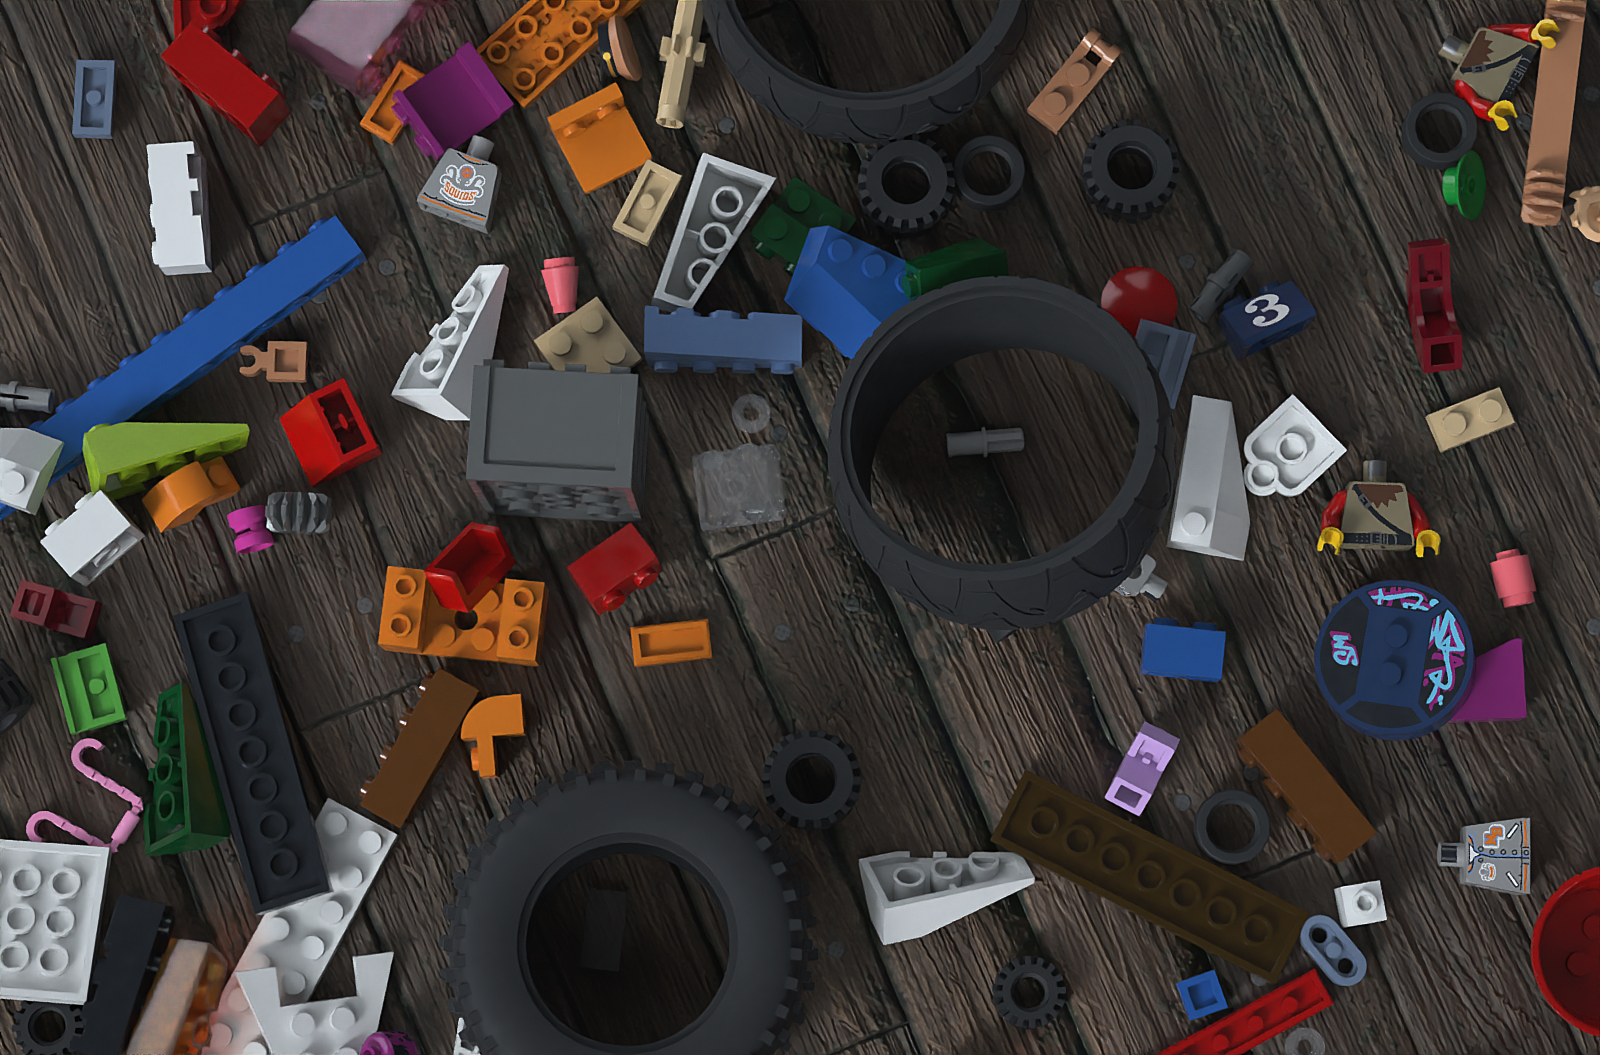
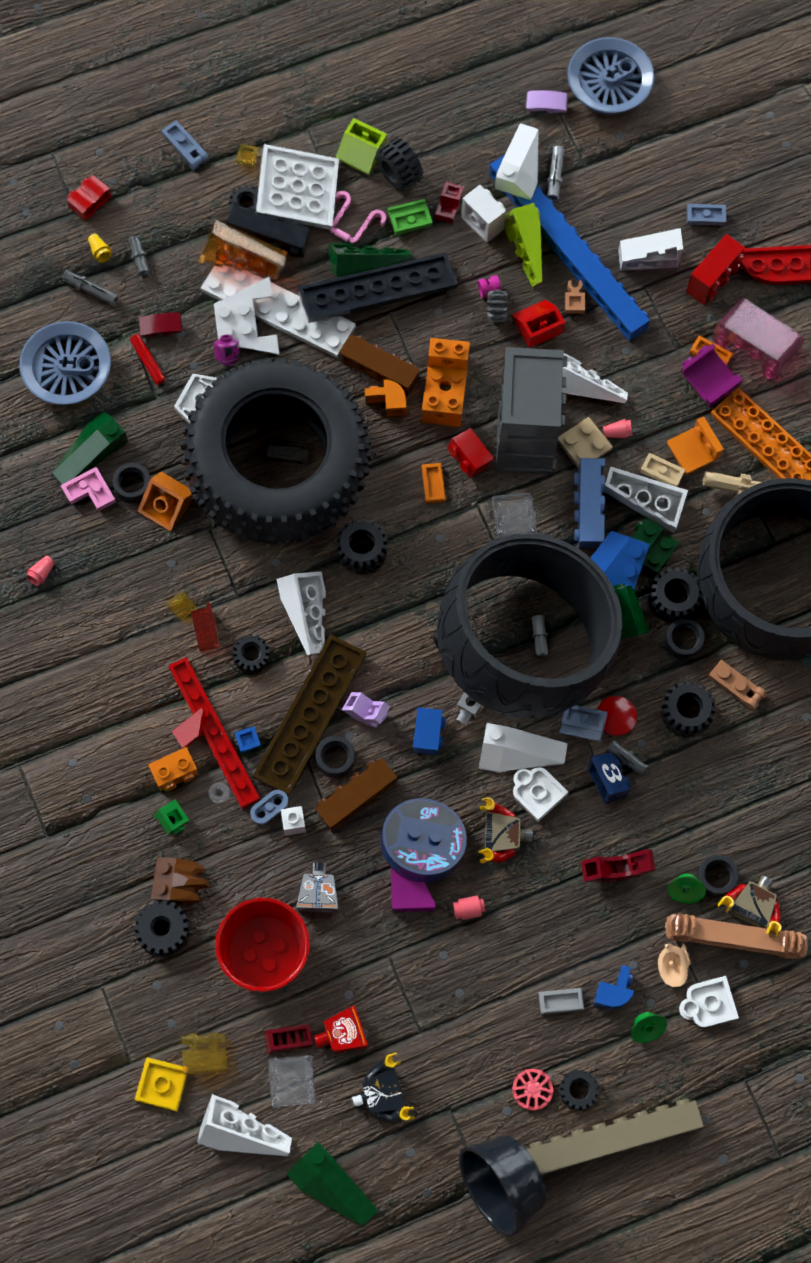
camera: 85 degrees right, 10 degrees down
(188, 491) = (508, 257): orange brick -> none
(464, 186) = (667, 383): light grey torso -> none
(469, 567) = (470, 382): red panel -> none
(617, 51) = (741, 453): nougat piece -> none
(751, 401) = (553, 516): clear plate -> none
(1470, 420) = (556, 889): tan plate -> none

